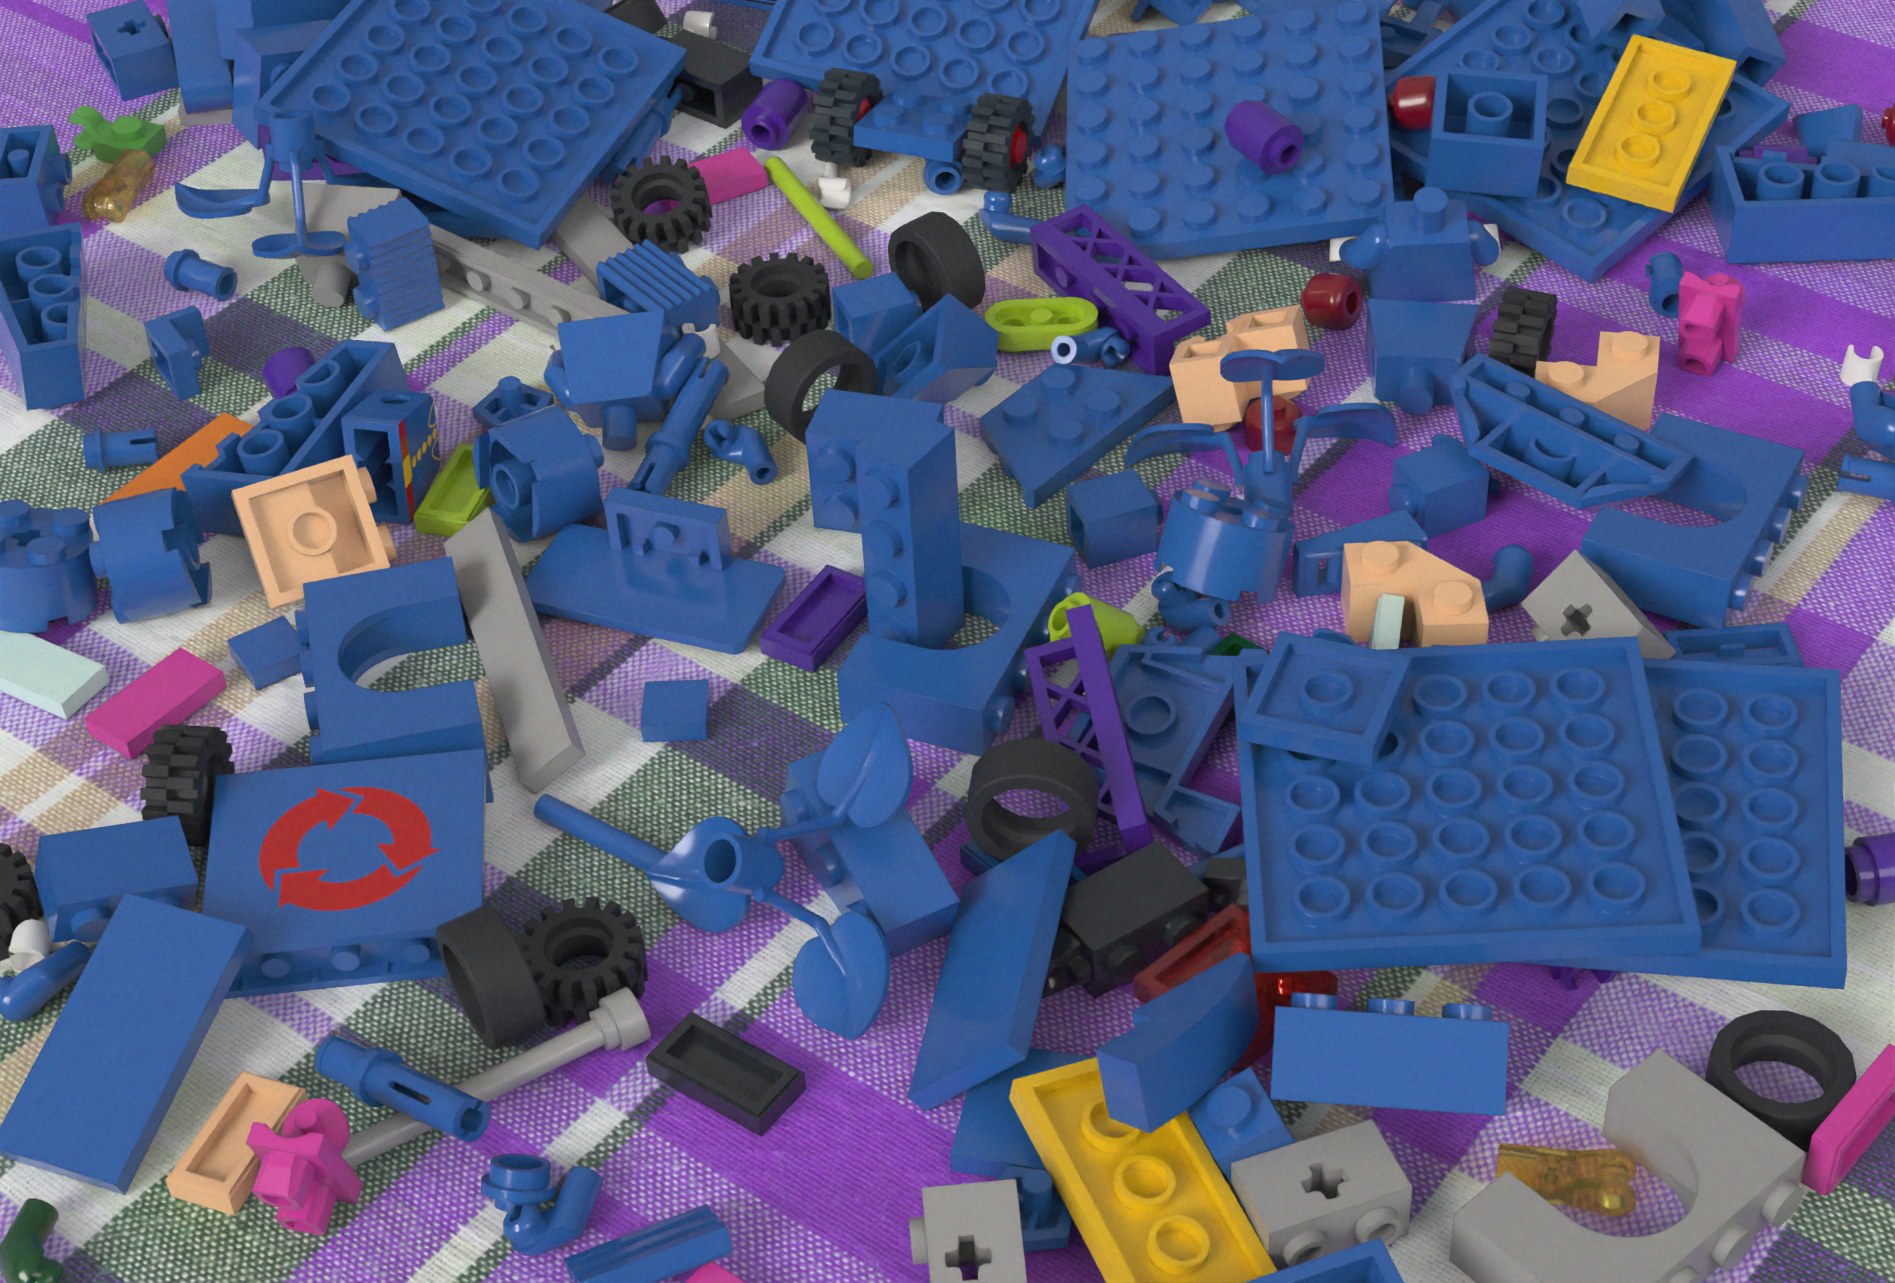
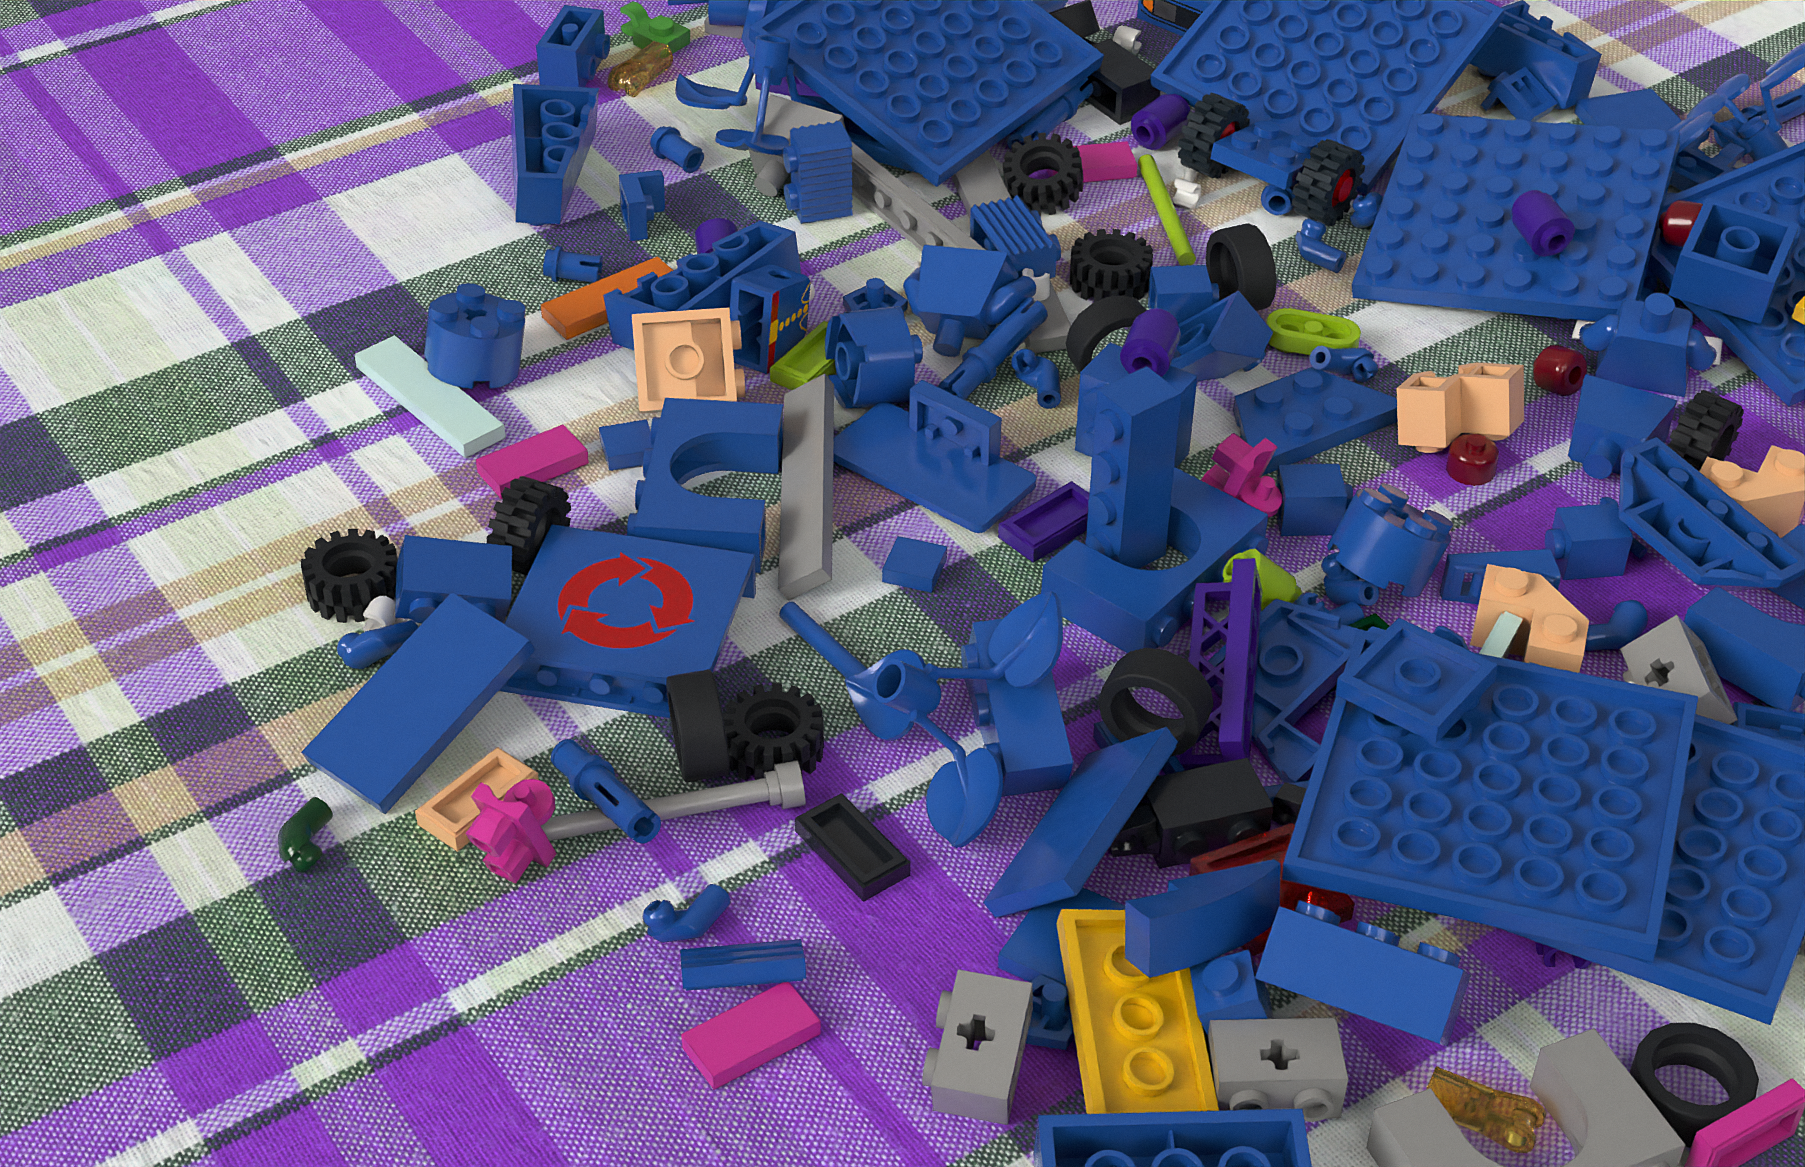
camera: 15 degrees right, 0 degrees up
(151, 555) = (563, 349): blue brick -> none
(518, 1180) = (667, 882): blue plate -> none
(879, 378) = (1151, 342): none -> dark purple brick
(1031, 497) = (1245, 469): none -> dark pink hips
(1071, 271) = (1351, 296): dark purple fence -> none
(1267, 470) = (1450, 492): blue plant -> none

